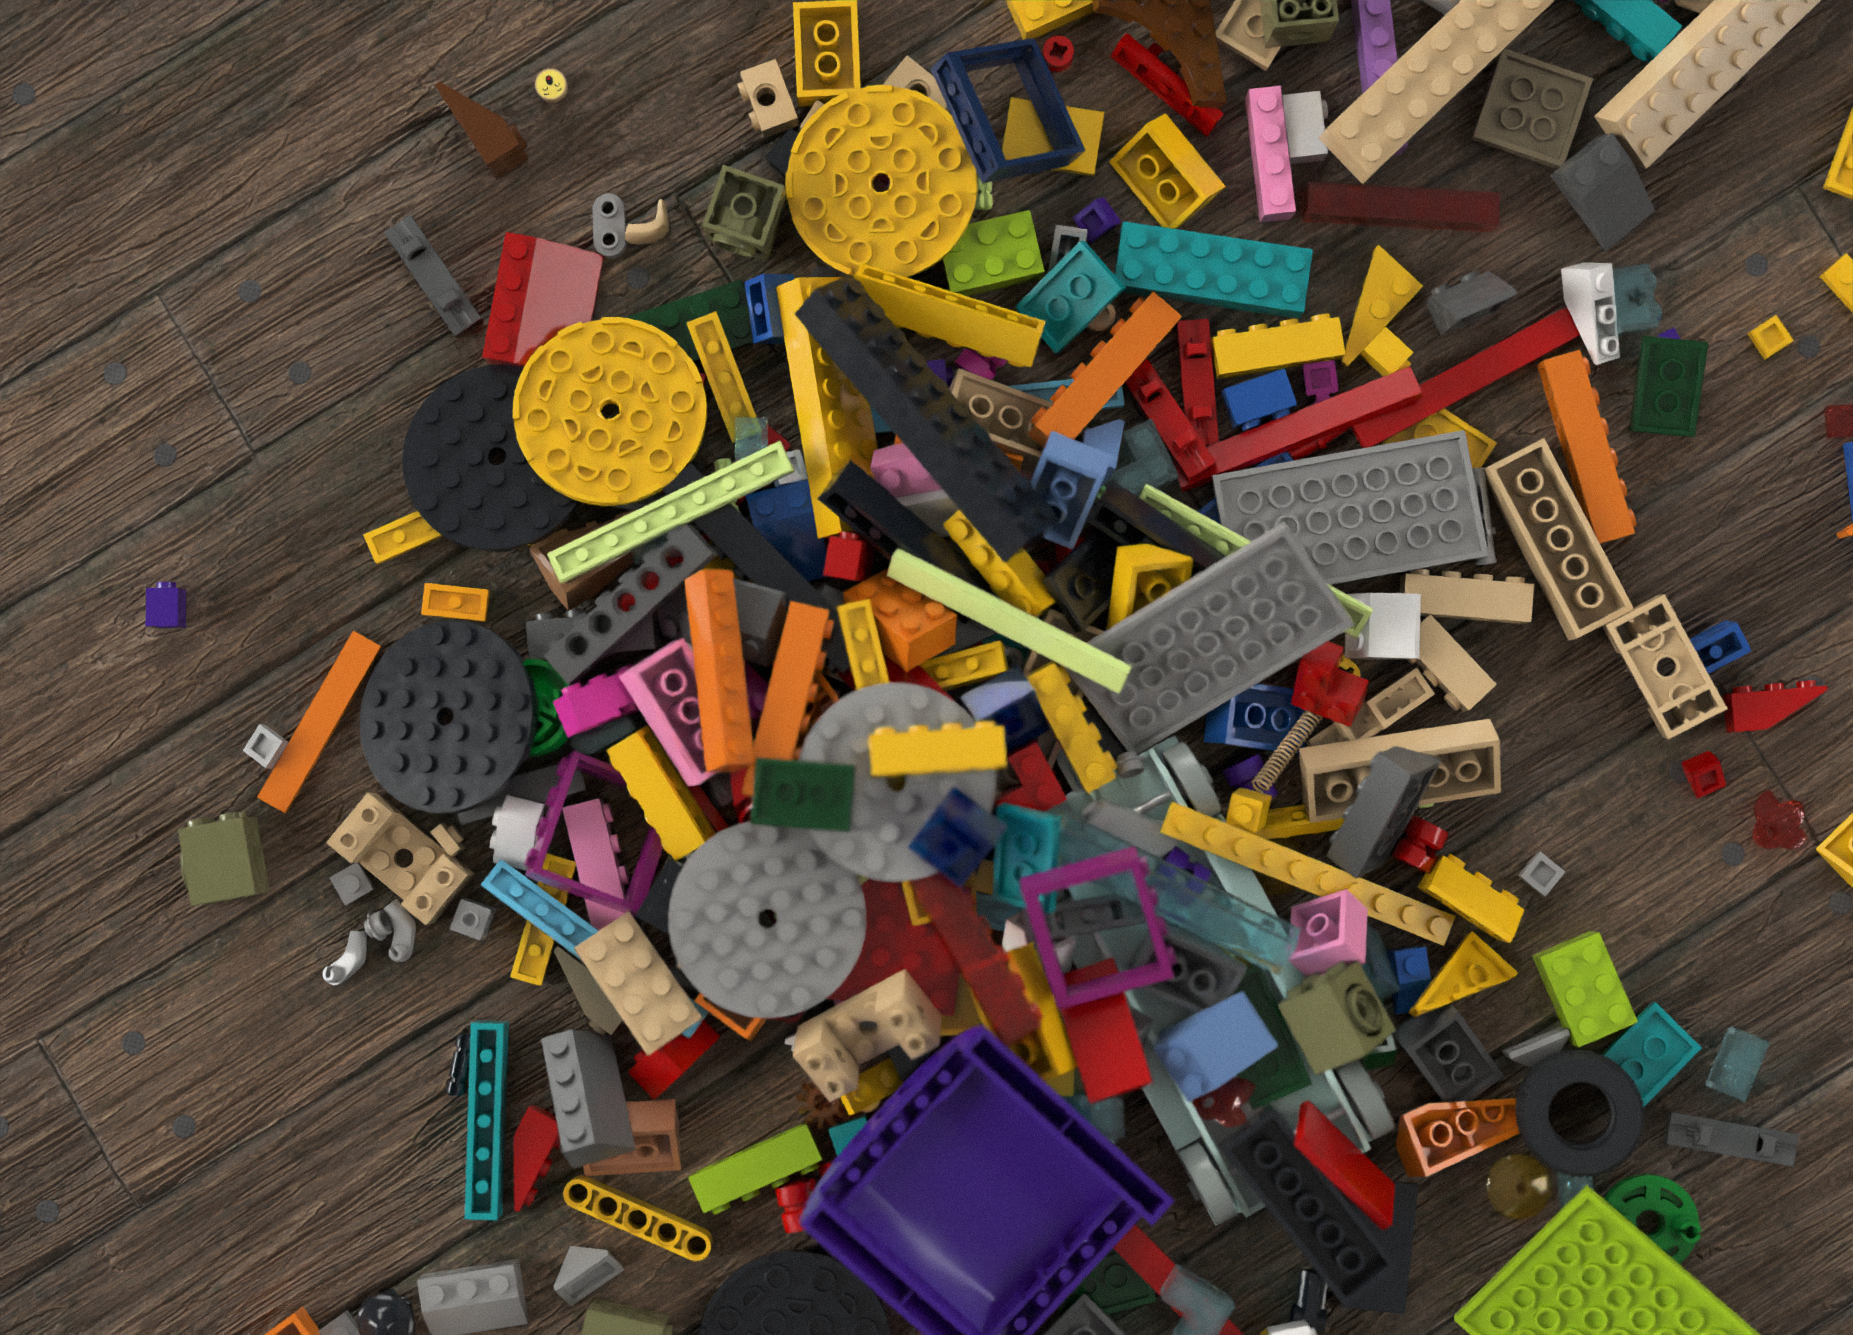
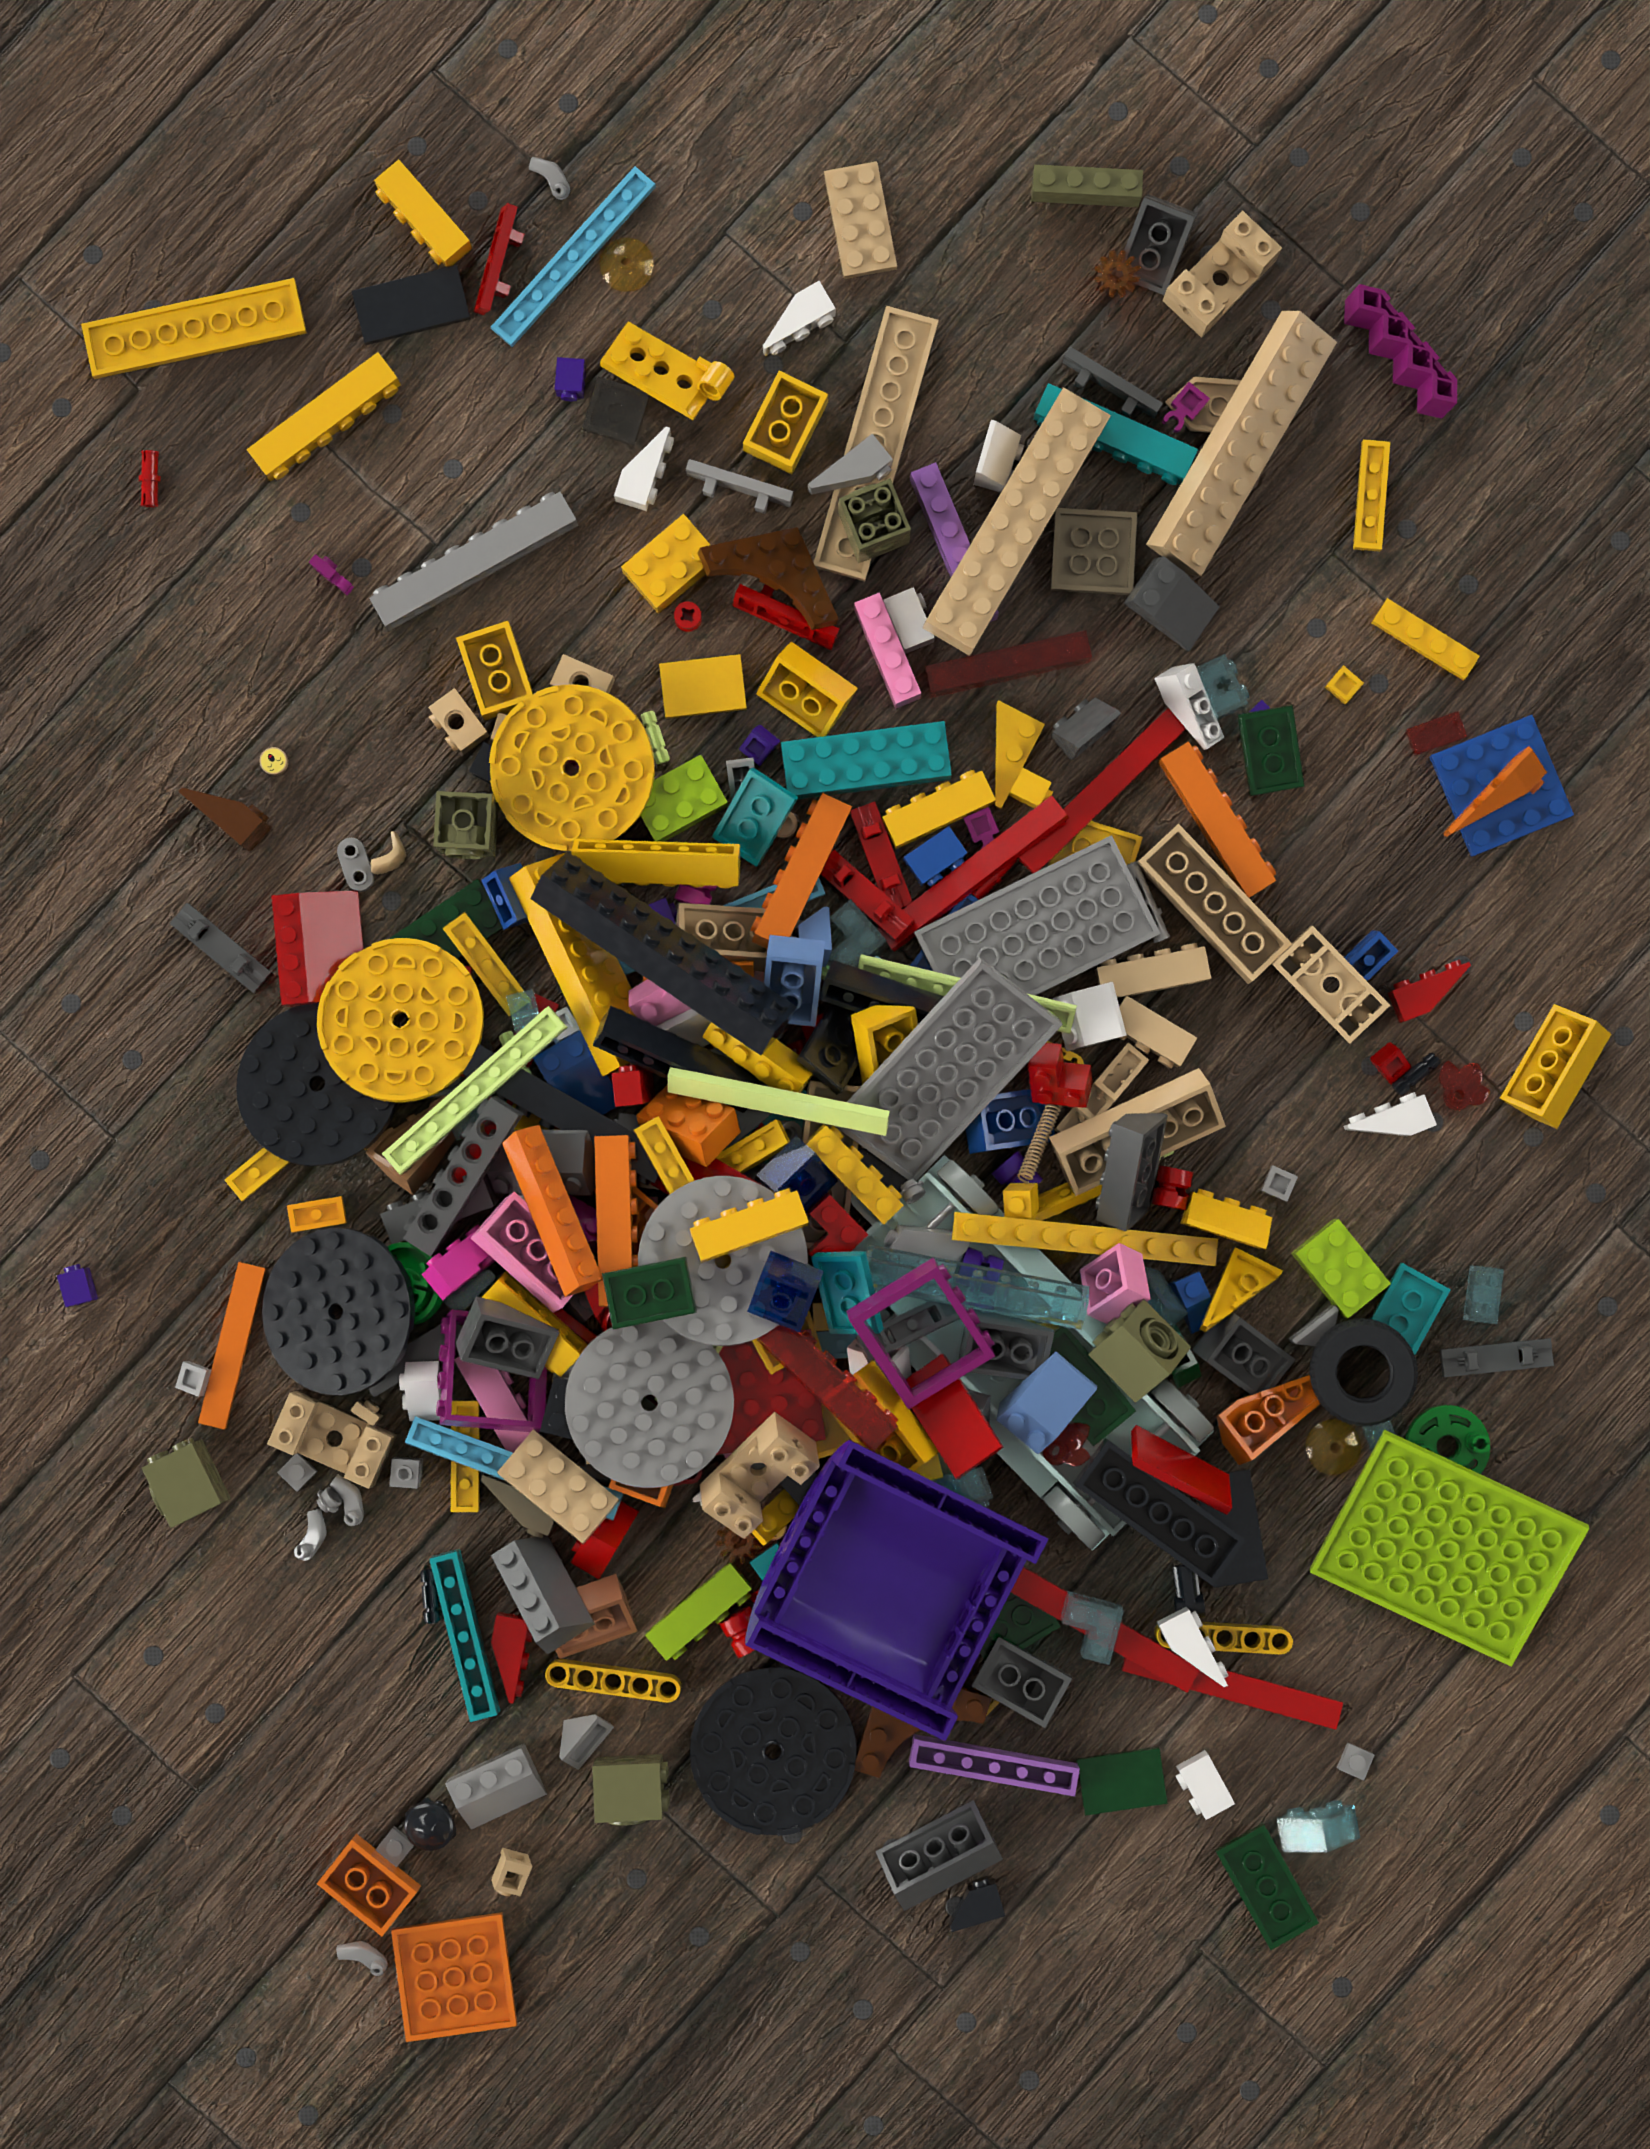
camera: 15 degrees left, 0 degrees up
(625, 800) = (505, 1339): none -> dark grey slope
(974, 126) = (631, 695): dark blue window -> none
(1703, 842) = (1402, 1119): none -> white slope
(1729, 794) = (1416, 1074): none -> black axle

